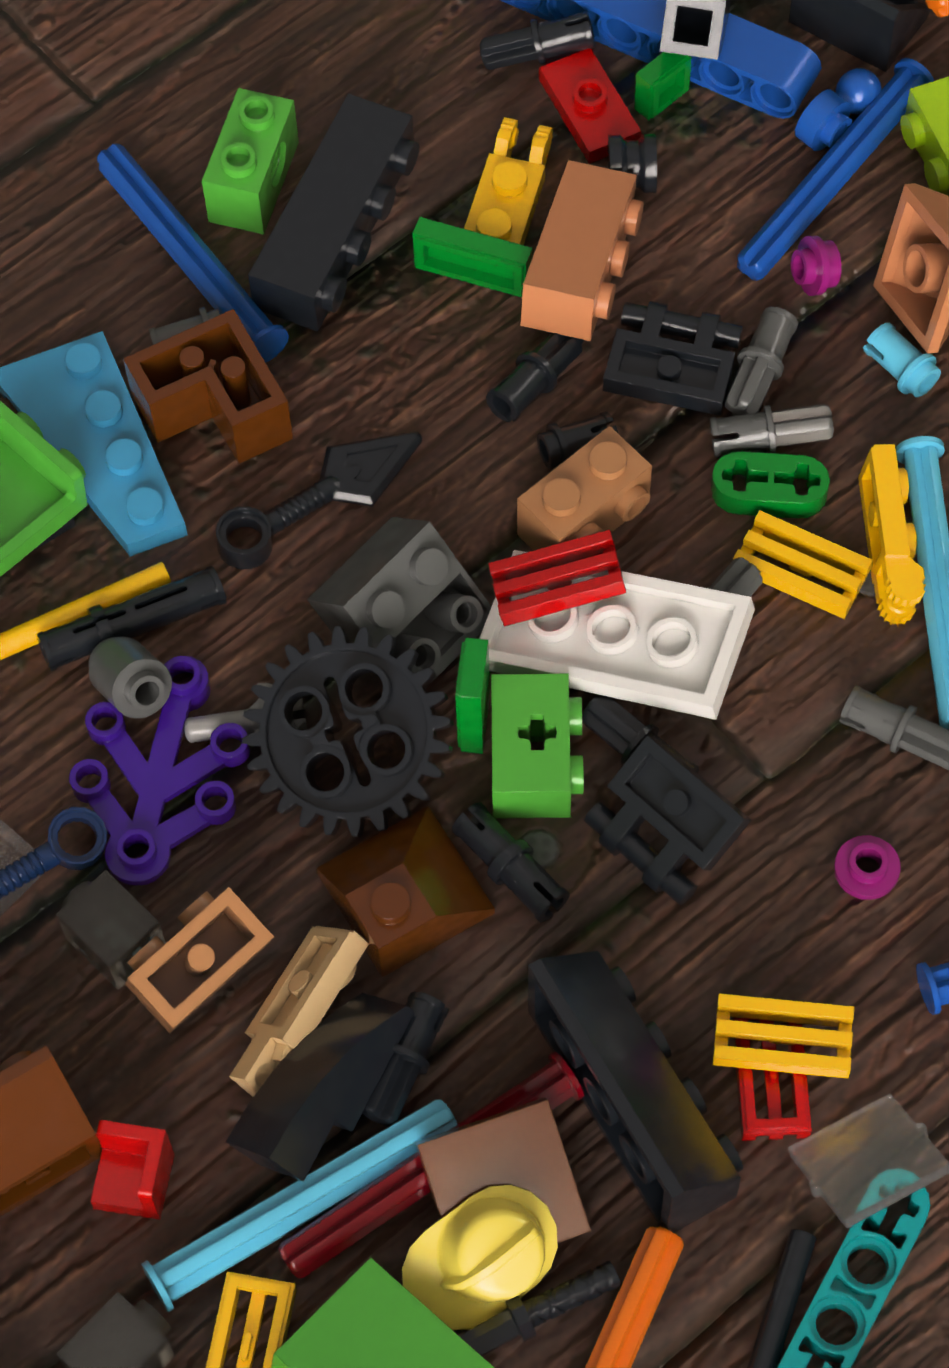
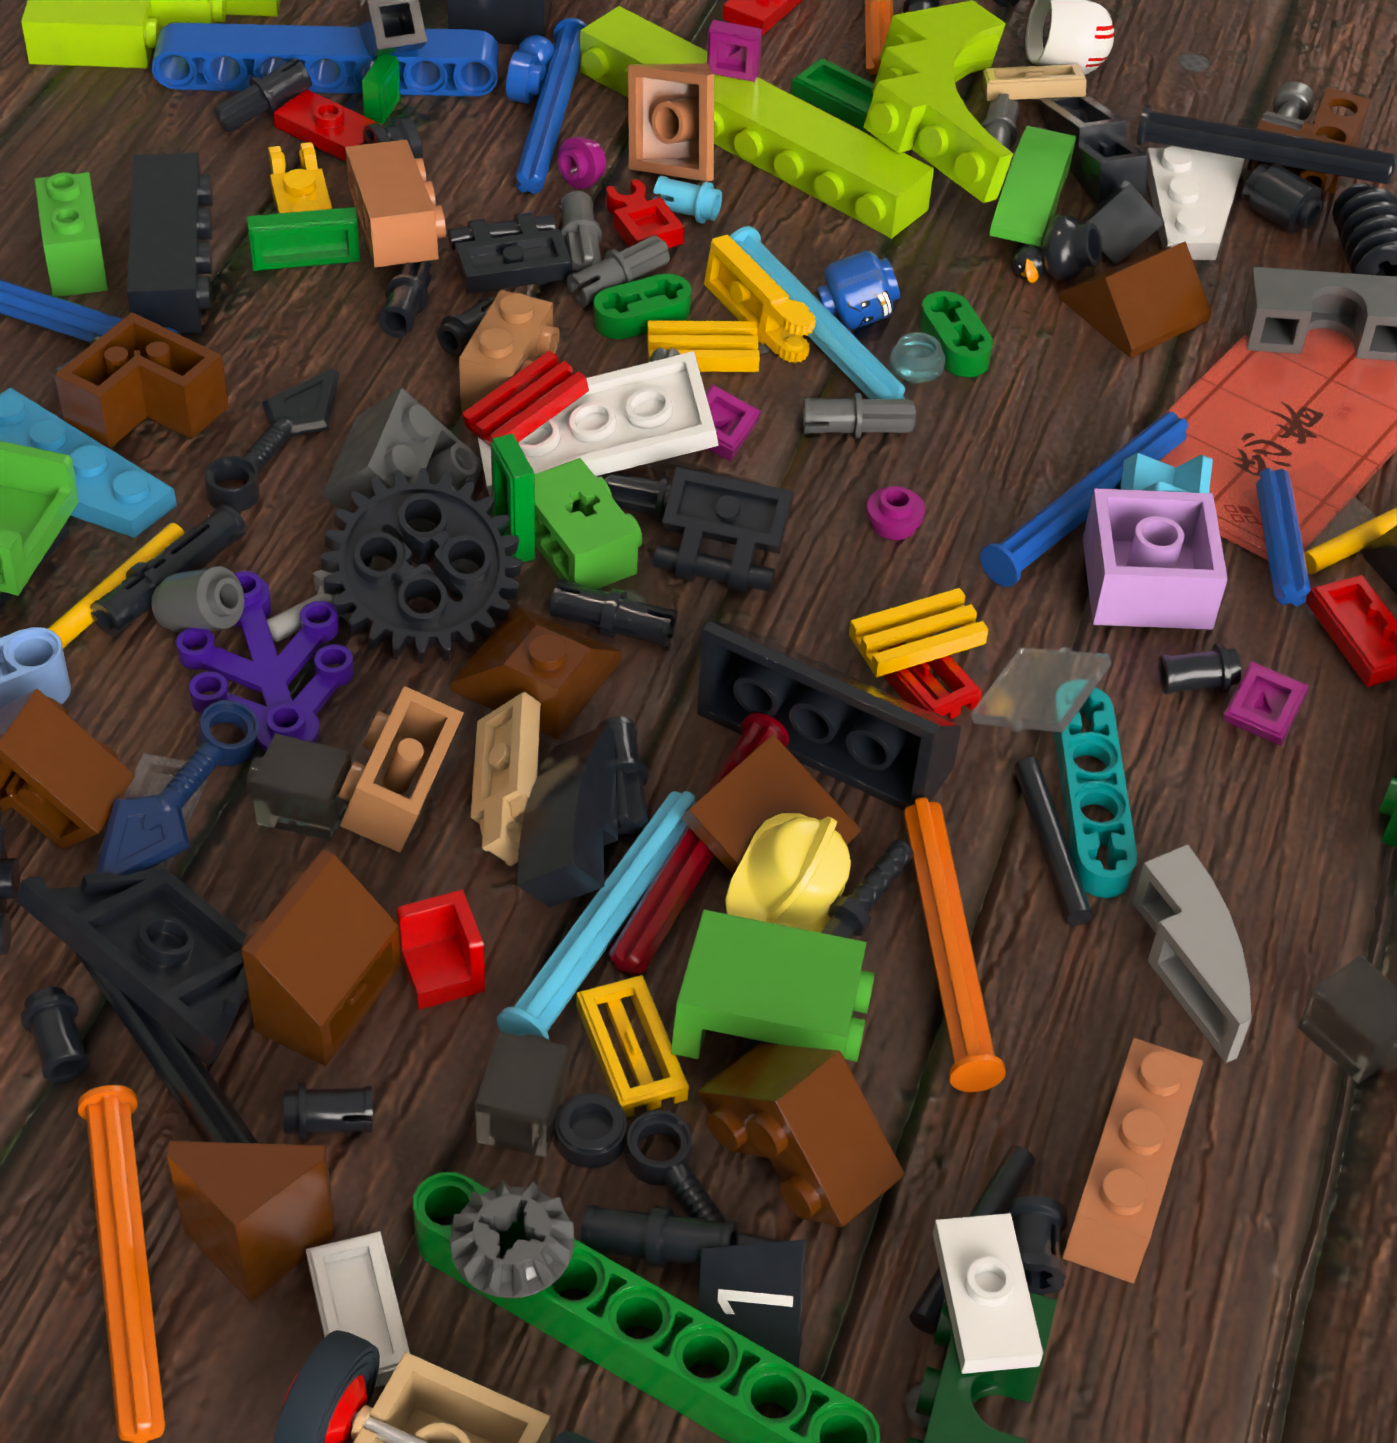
camera: 35 degrees left, 15 degrees down
(760, 677) = (732, 421): none -> magenta tile
(836, 372) = (640, 219): none -> red plate

